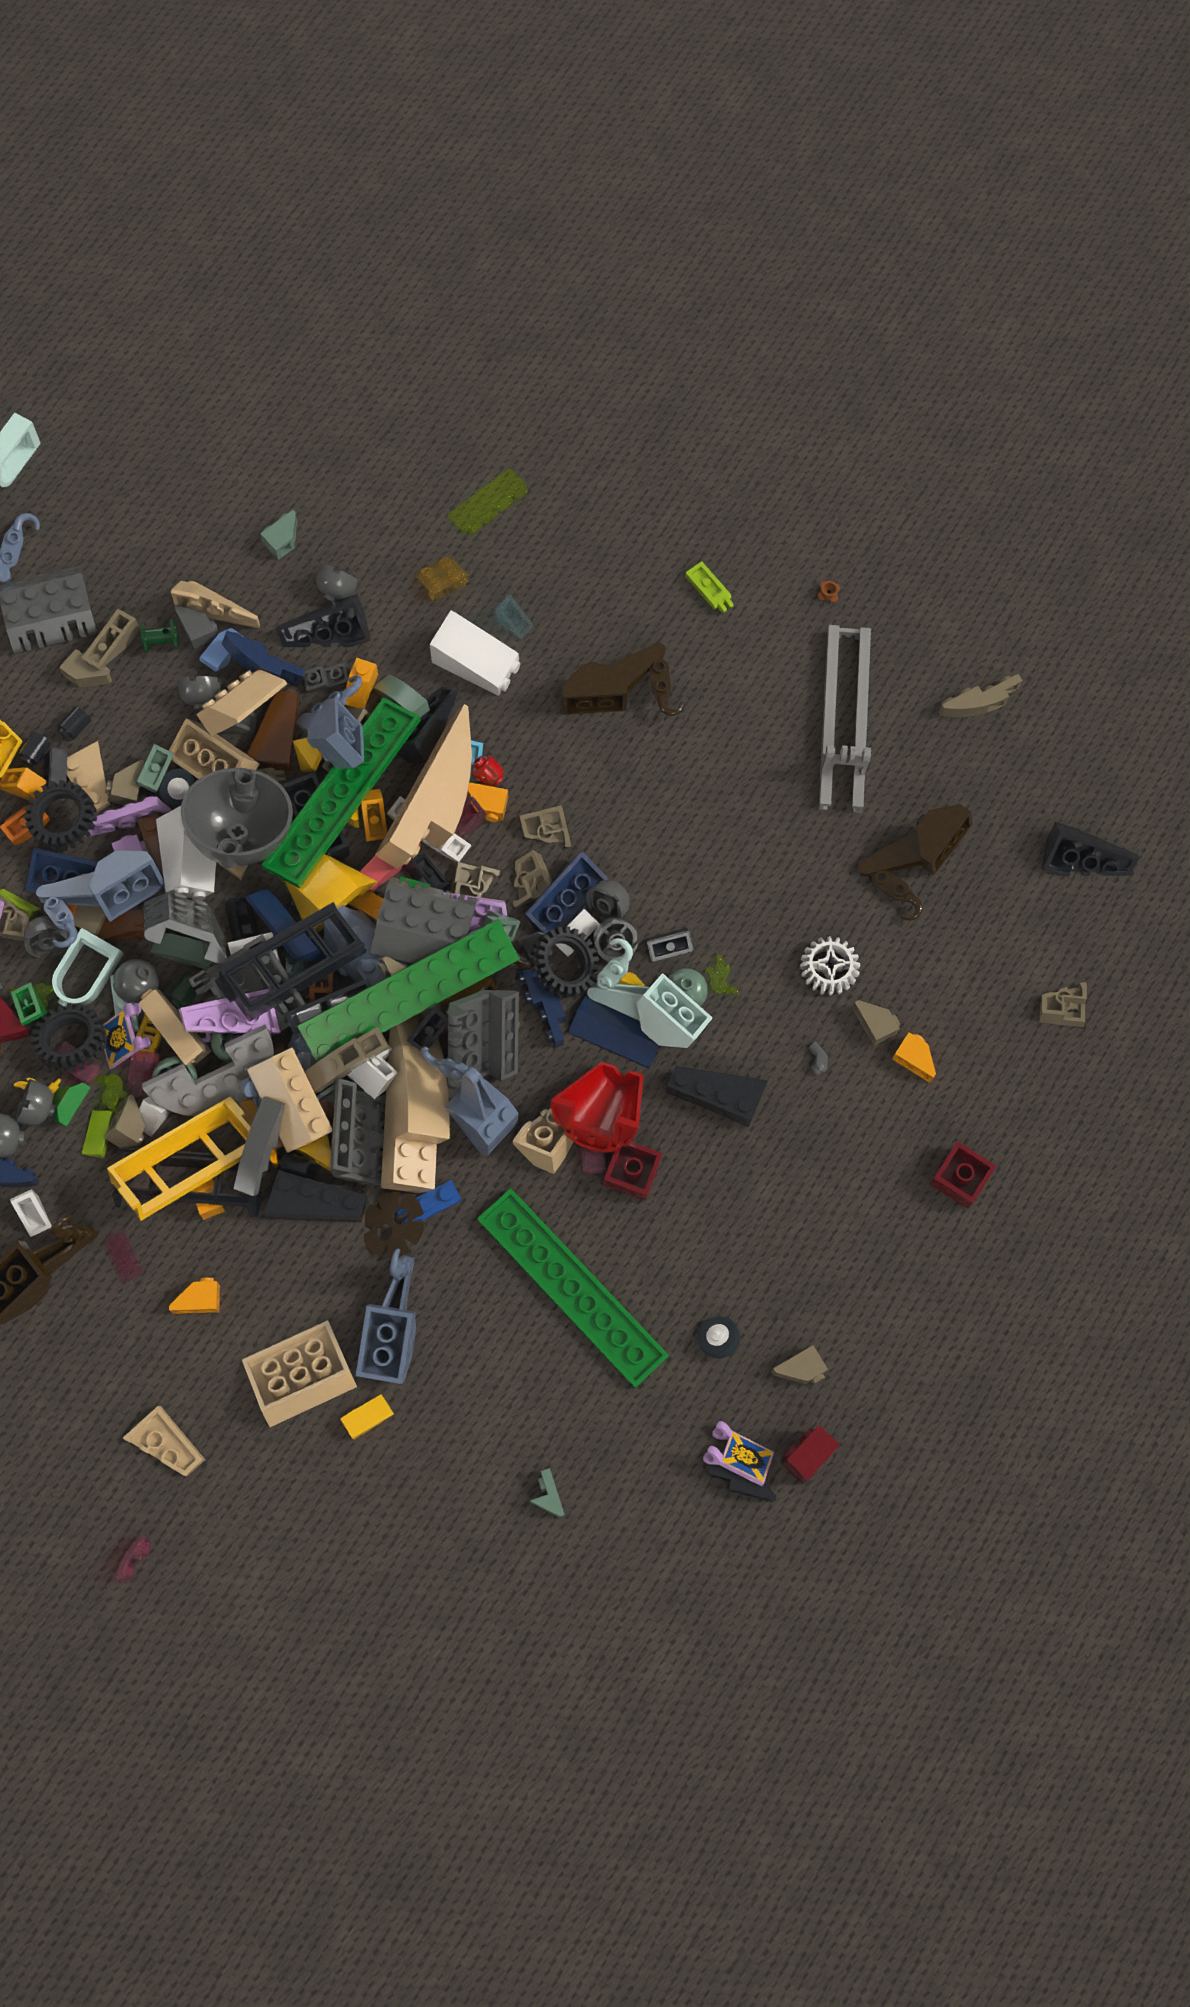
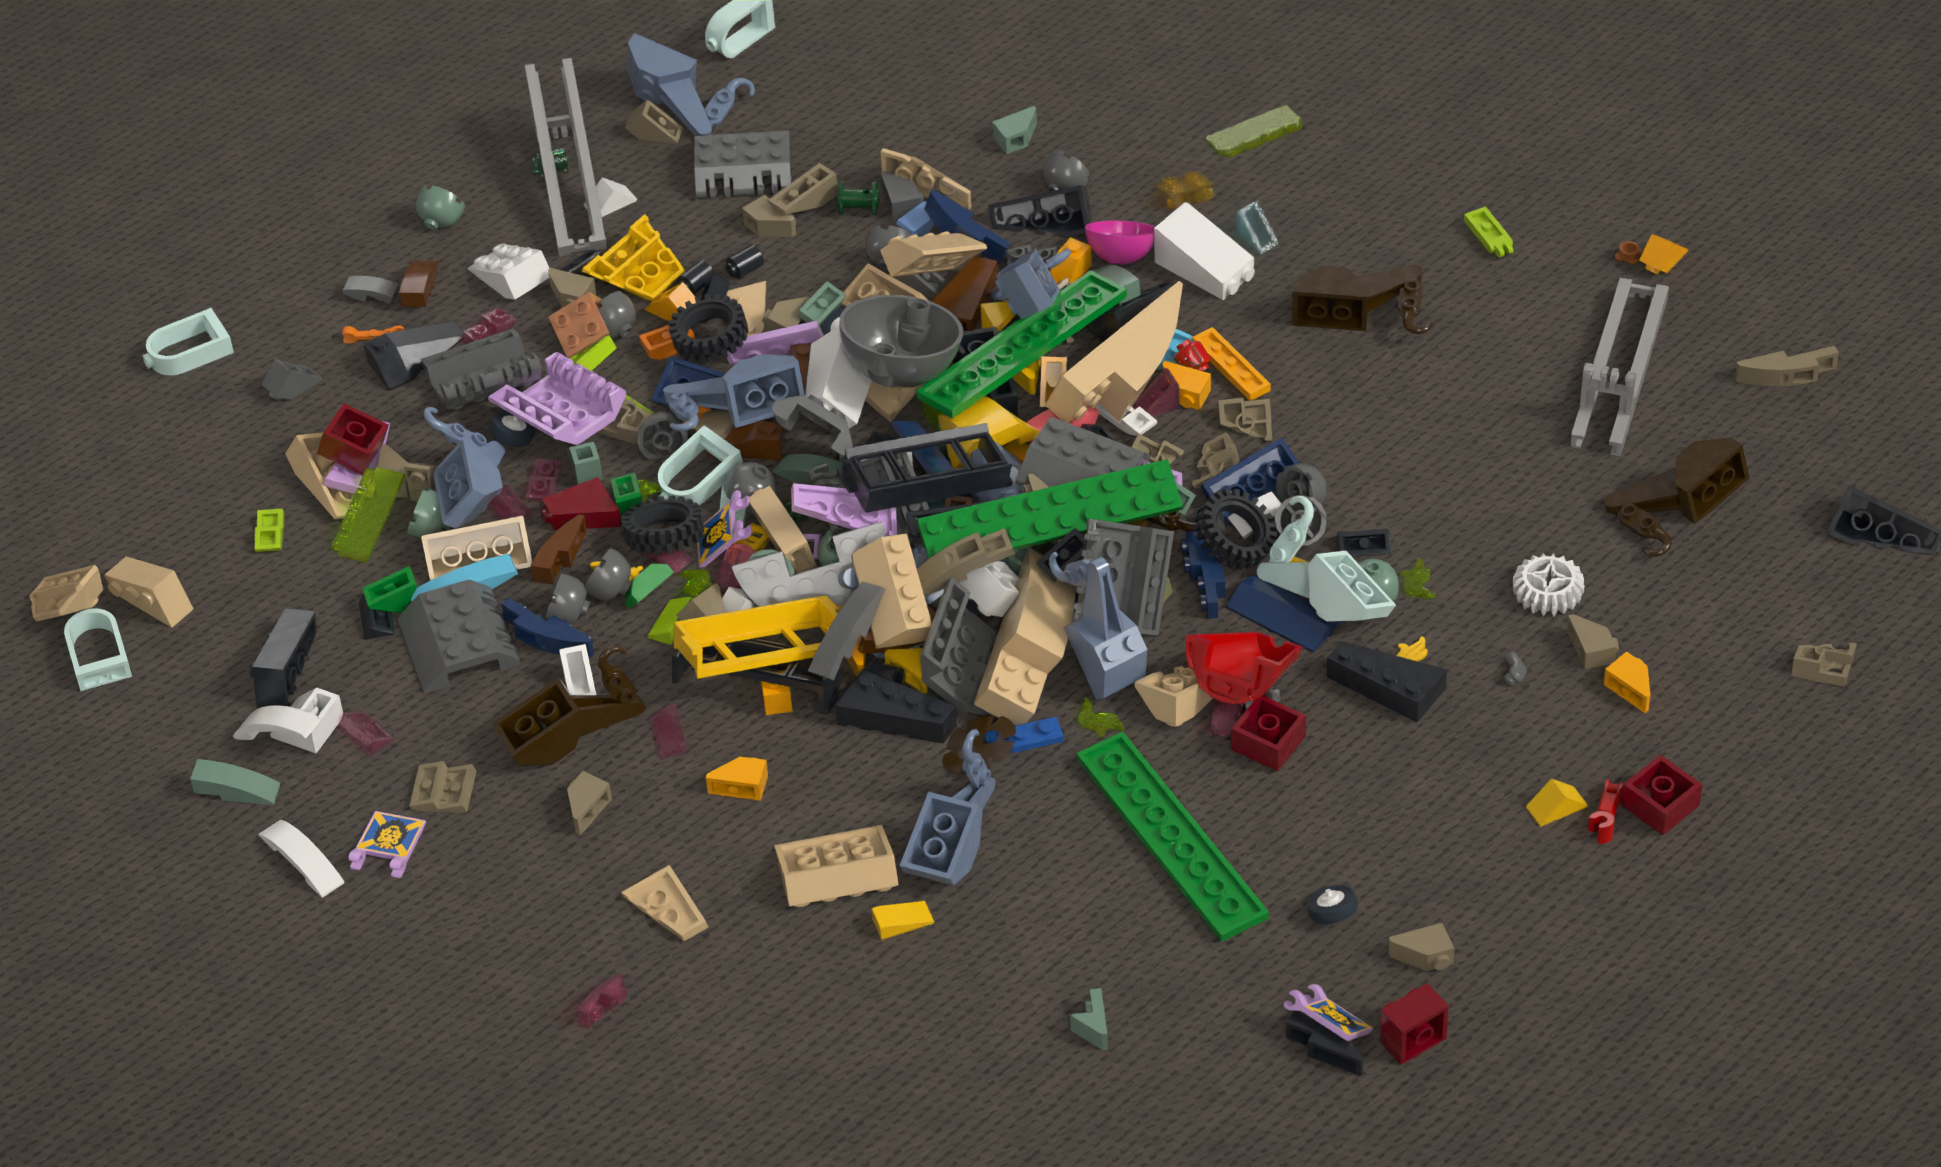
camera: 20 degrees right, 25 degrees down
(69, 1347) = (587, 799): none -> dark tan slope
(400, 649) = (1120, 240): none -> dark pink piece
(486, 1176) = (1098, 722): none -> clear neon green piece
(521, 769) = (1233, 365): none -> light orange plate
(729, 1058) = (1414, 652): none -> yellow piece
(858, 590) = (1661, 254): none -> light orange slope
(877, 1193) = (1554, 802): none -> yellow slope
(920, 1193) = (1604, 816): none -> red piece

